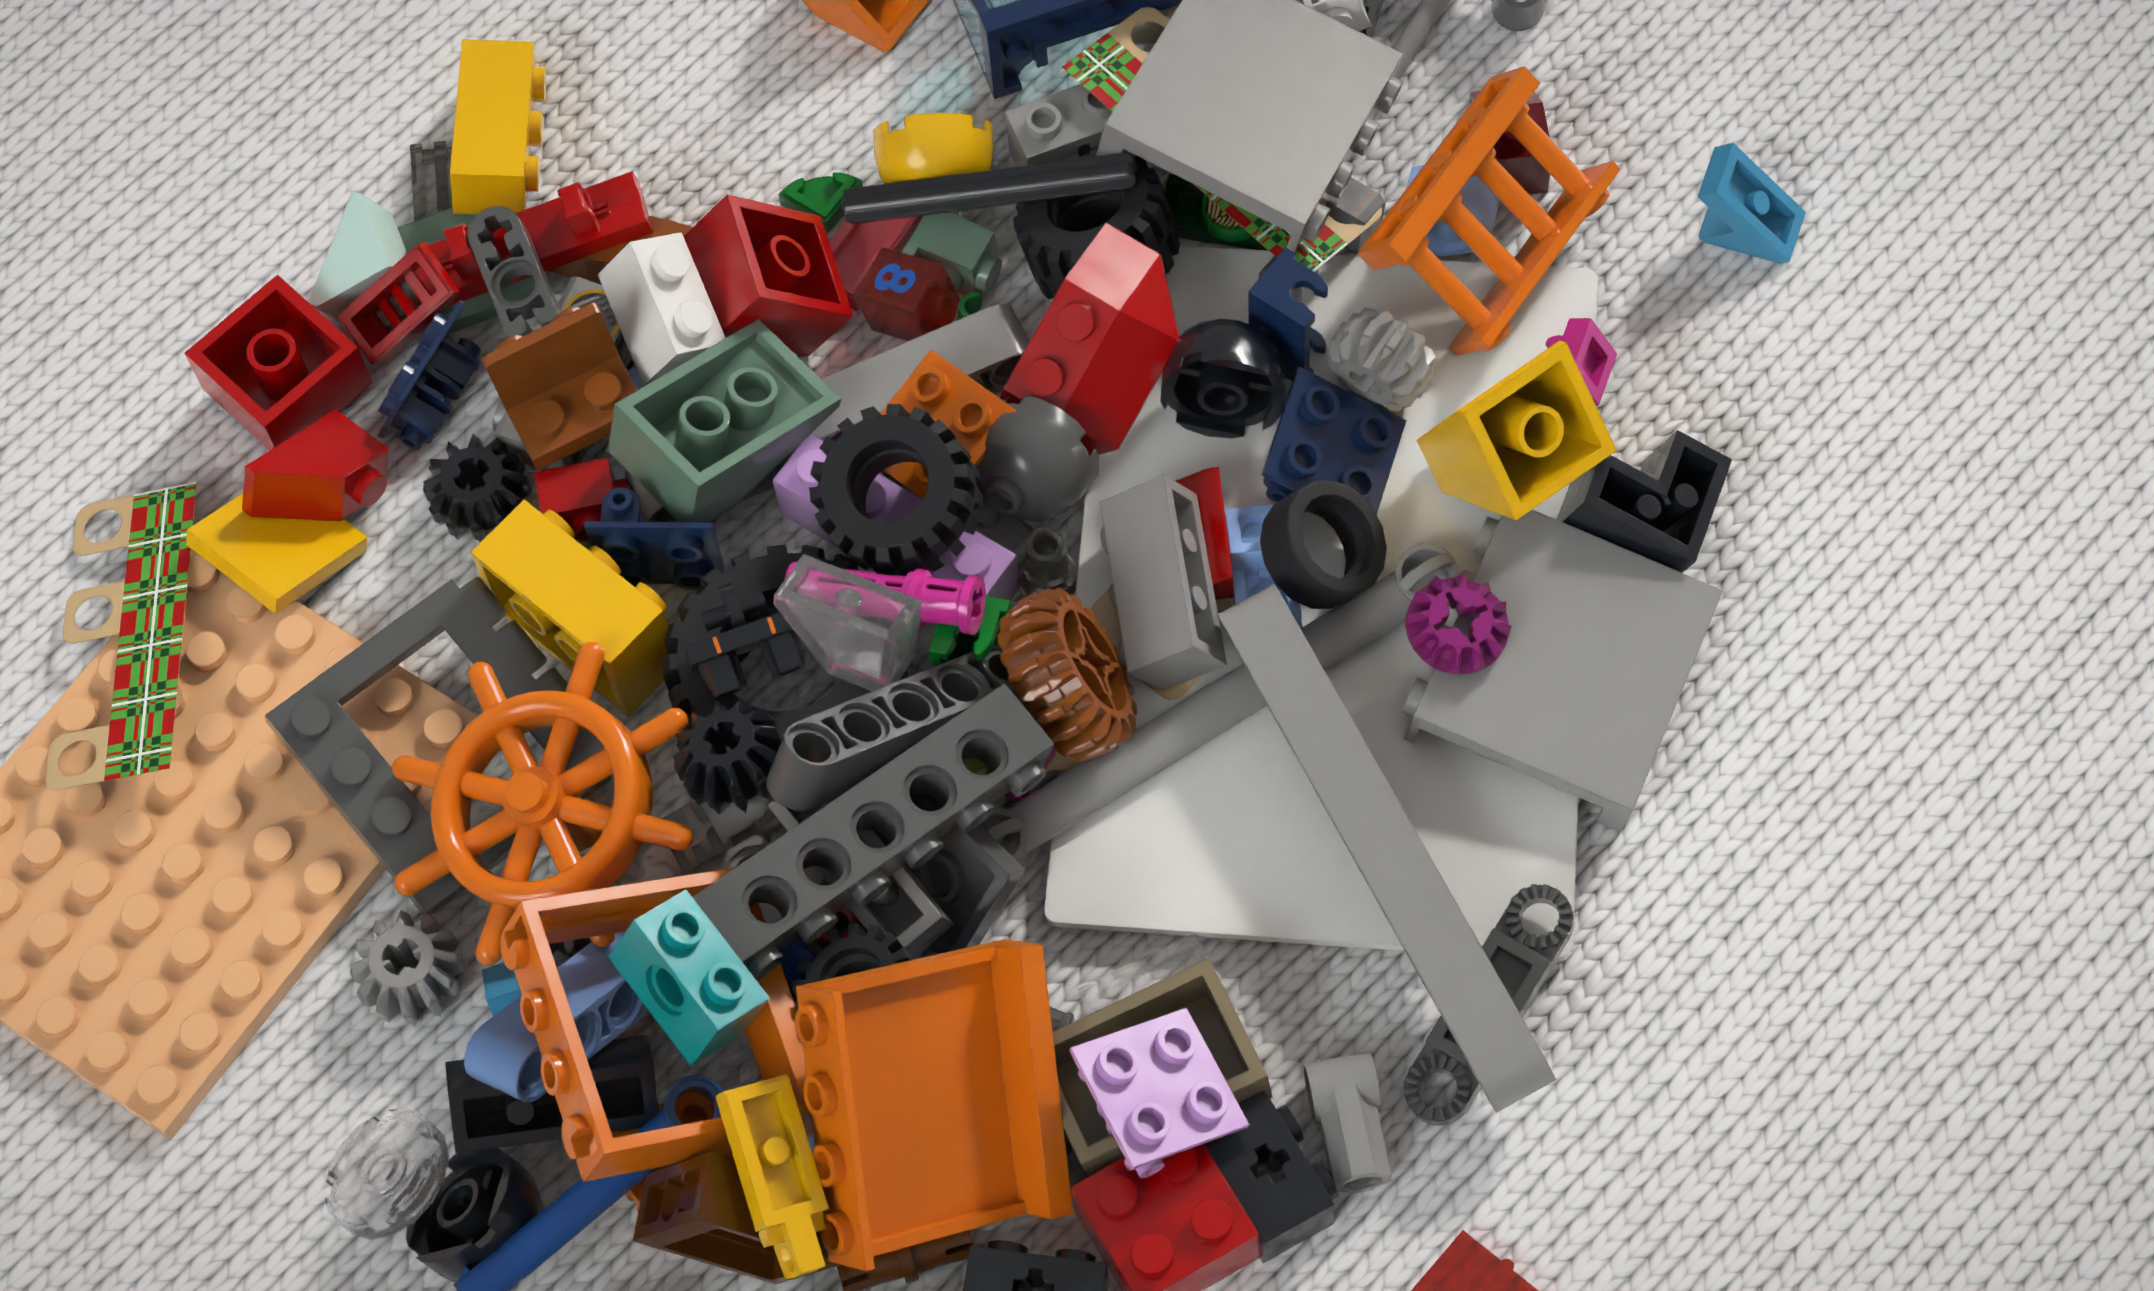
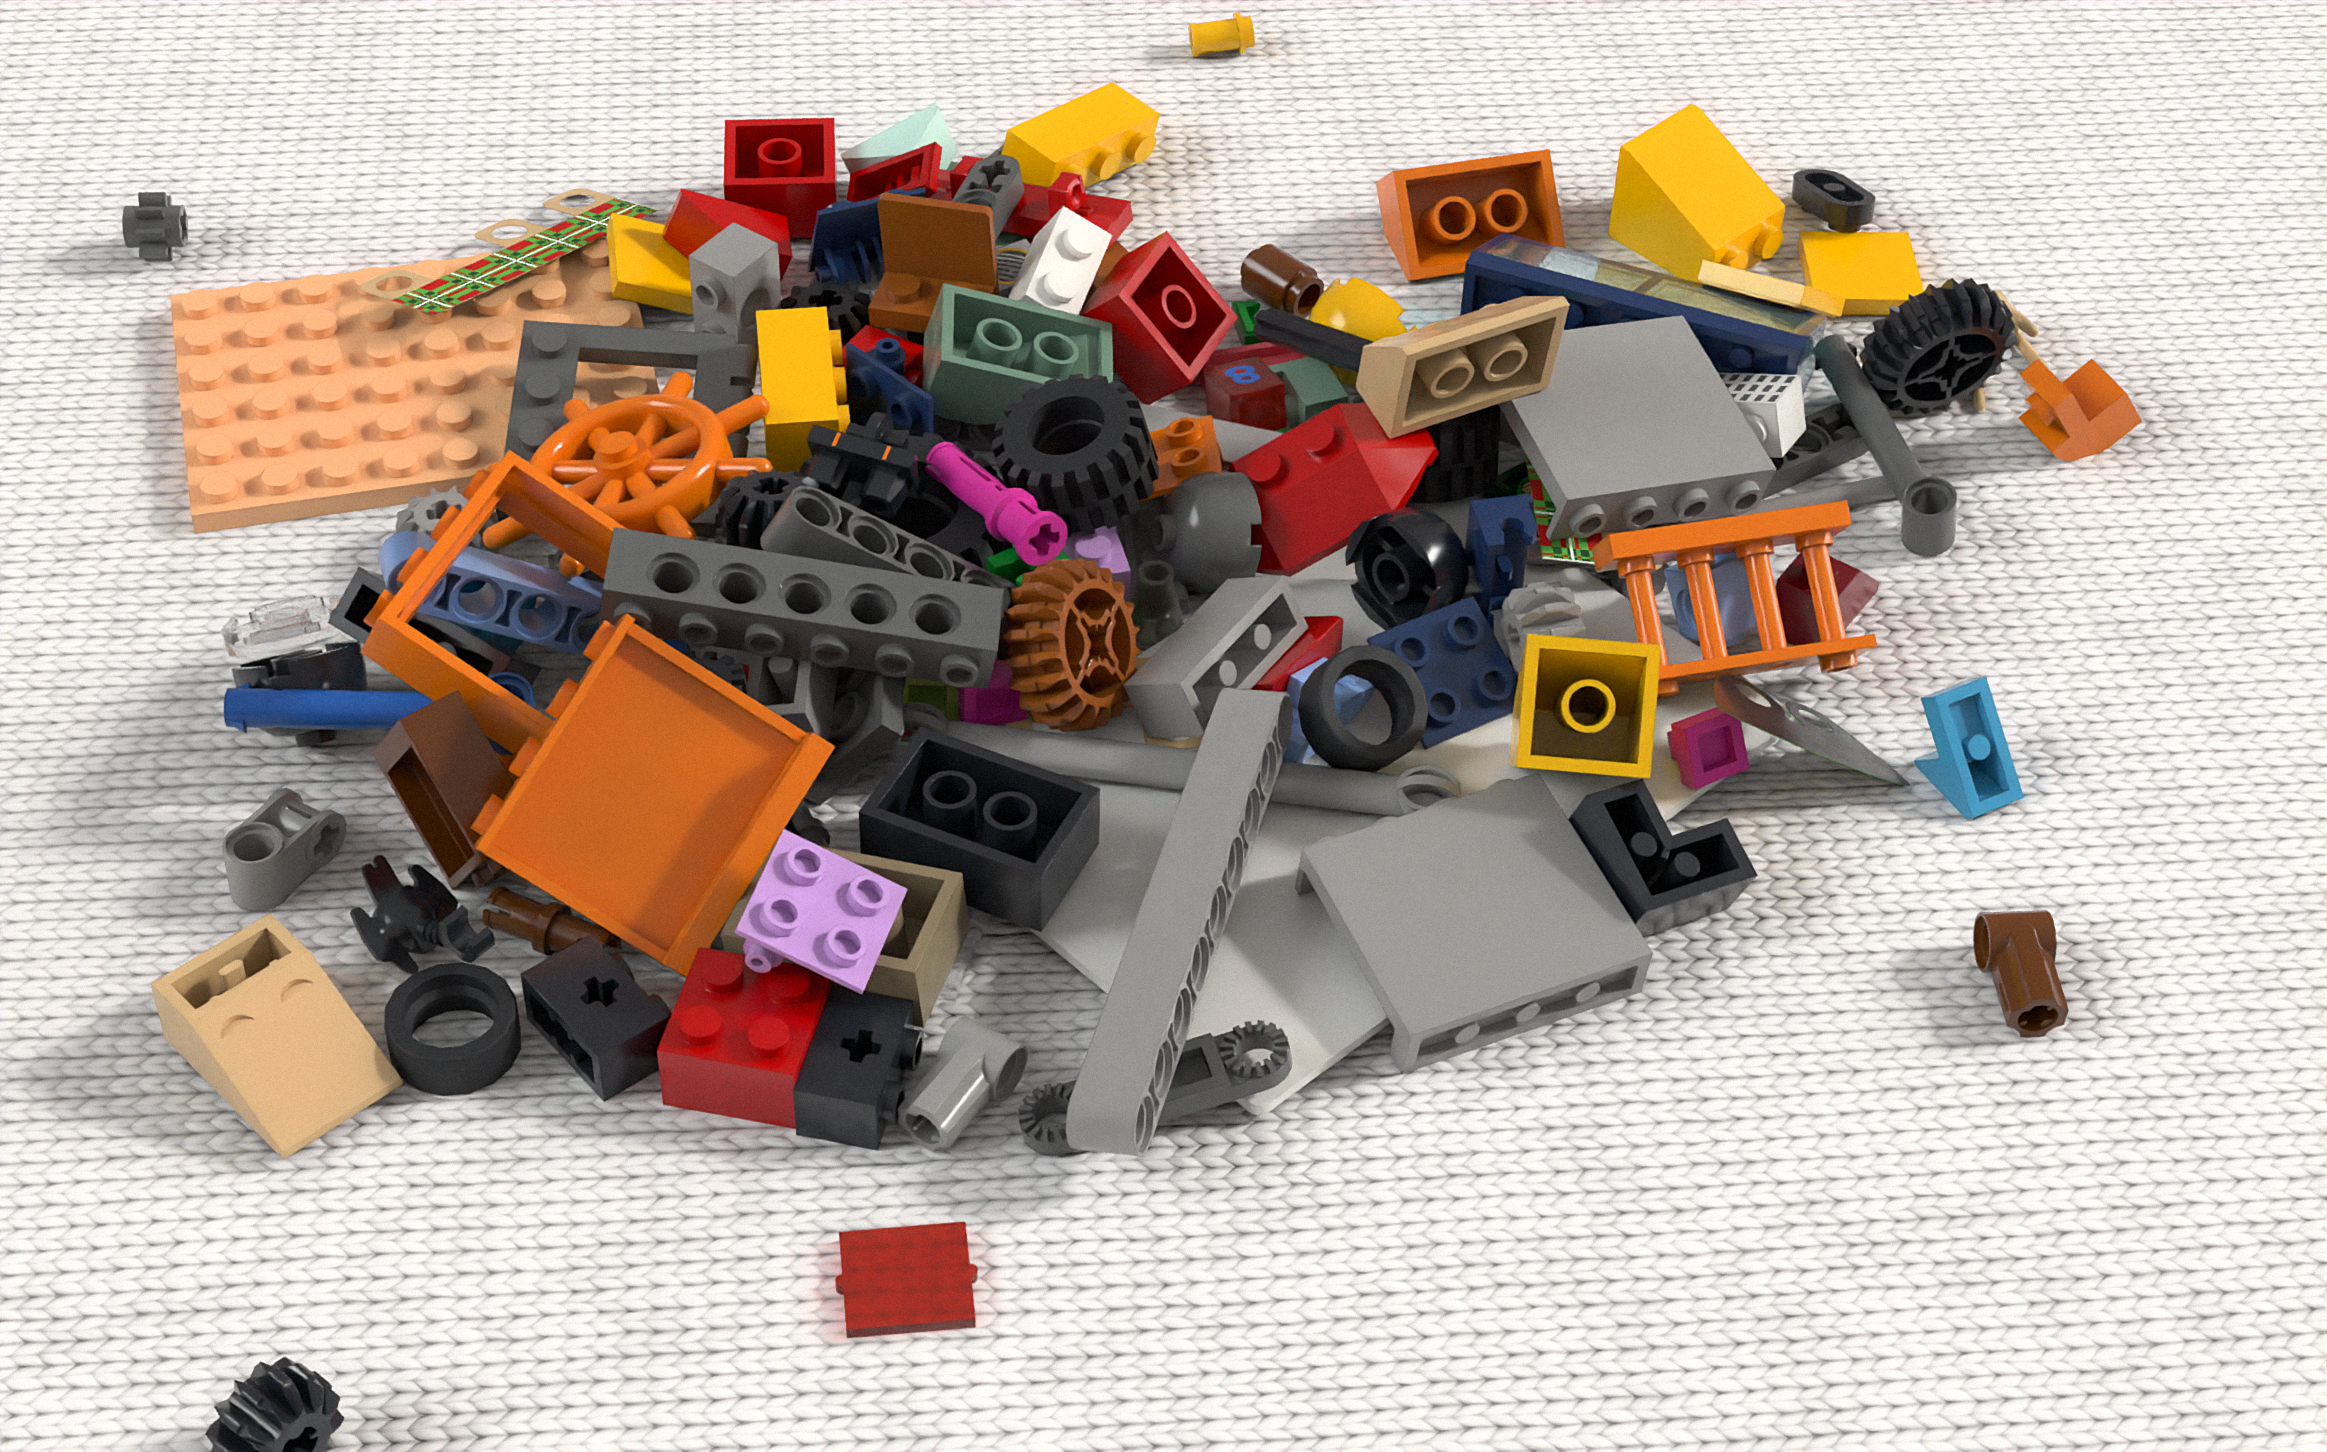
camera: 35 degrees right, 20 degrees down
(390, 530) = (732, 281): none -> light grey brick
(688, 977) = (565, 576): teal brick -> none
(776, 1171) = (487, 735): yellow hinge -> none
(801, 142) = (1280, 281): none -> reddish brown brick
(850, 622) = (942, 487): clear slope -> none
(1132, 163) = (1462, 363): none -> tan slope
(1160, 897) = (993, 818): none -> black brick
(1448, 648) = (1424, 824): magenta gear -> none
(1648, 290) = (1834, 745): none -> piece
(1937, 366) = (2021, 958): none -> reddish brown piece

